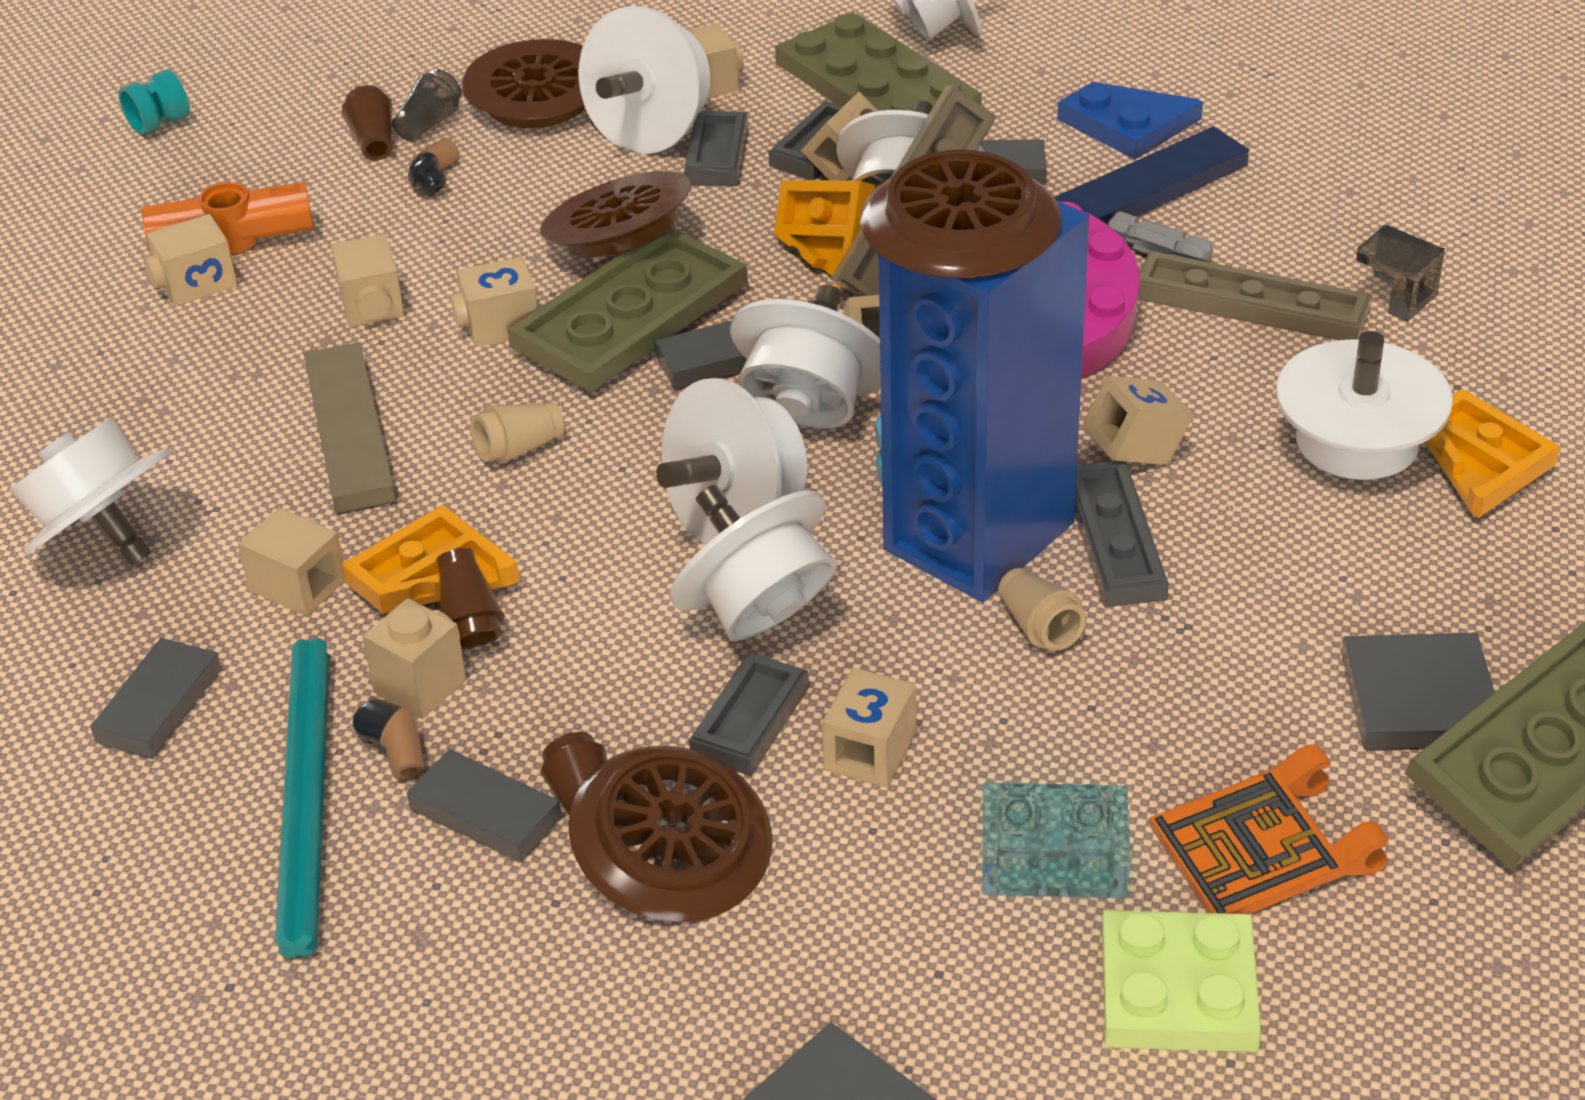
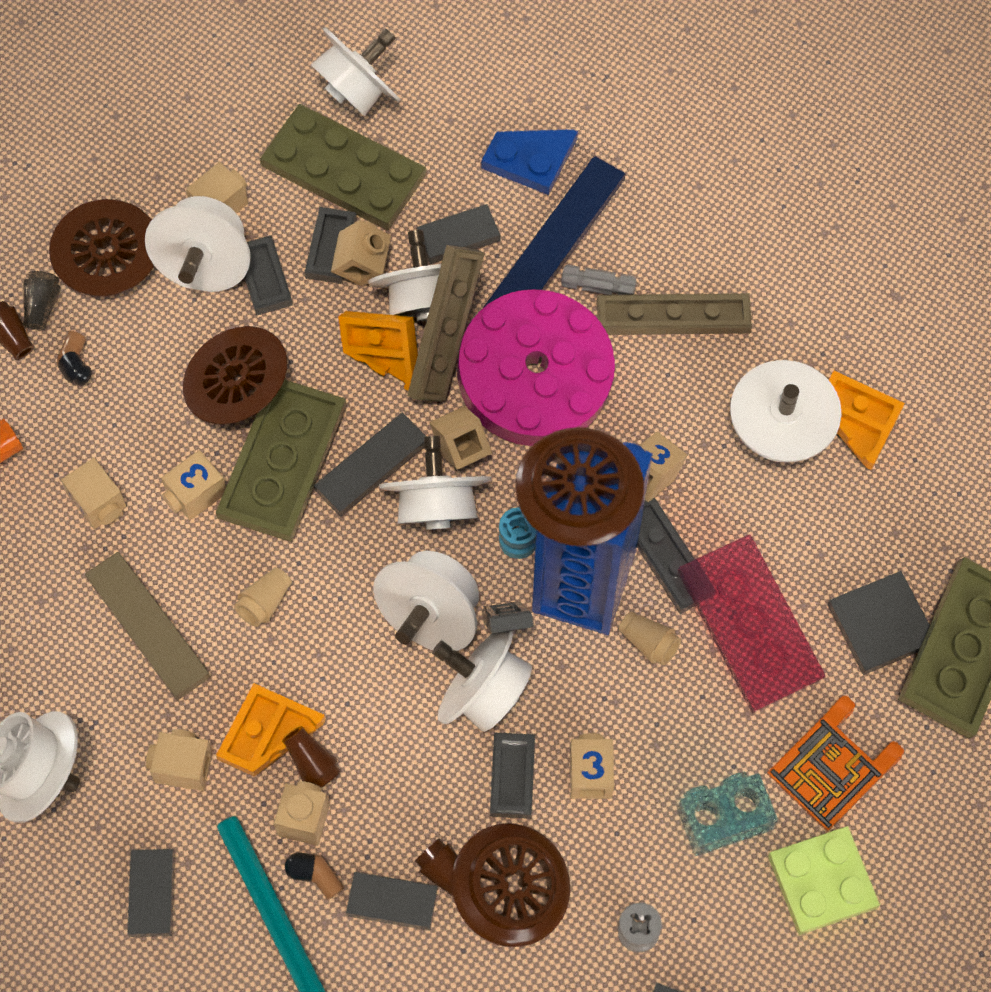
camera: 25 degrees left, 25 degrees up
(835, 477) = (507, 617): none -> dark grey tile
(836, 962) = (634, 934): none -> light grey wheel
(1207, 634) = (751, 623): none -> clear pink tile
(1408, 264) = (763, 266): clear smoke panel -> none

